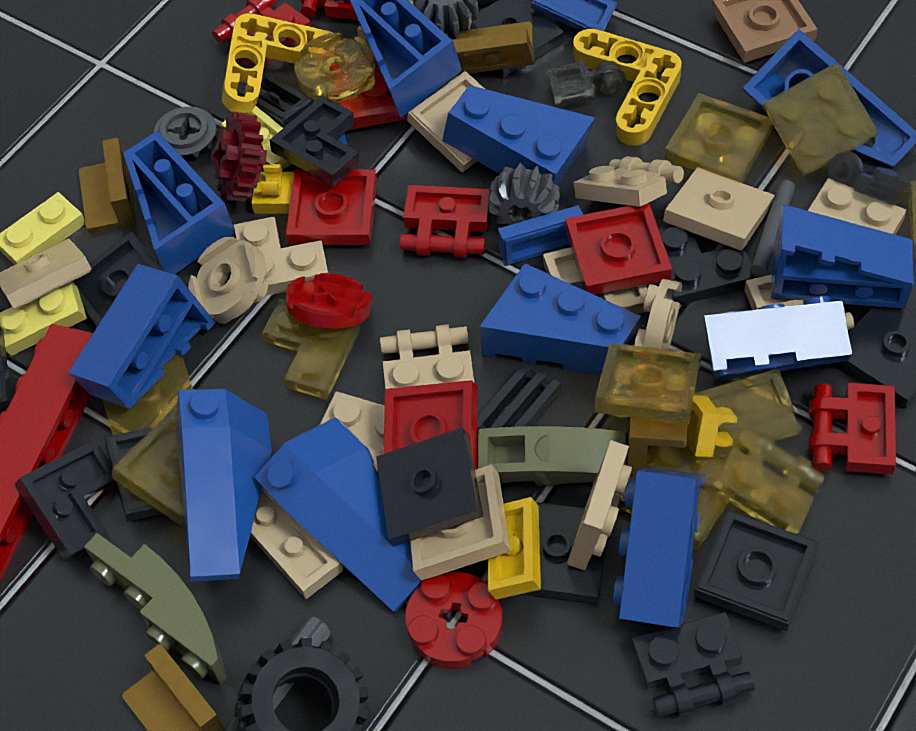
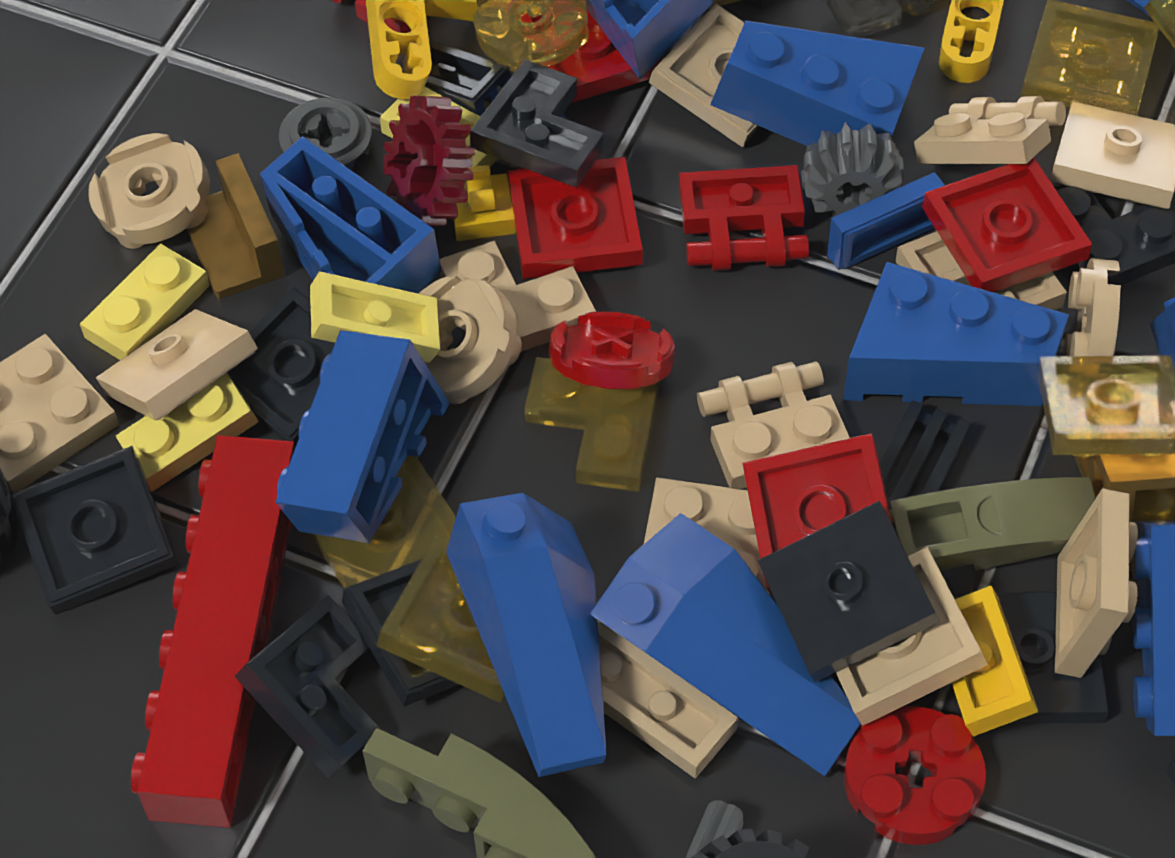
camera: 15 degrees left, 0 degrees up
(75, 166) = (162, 214): none -> tan plate
(169, 254) = (373, 309): none -> light yellow plate

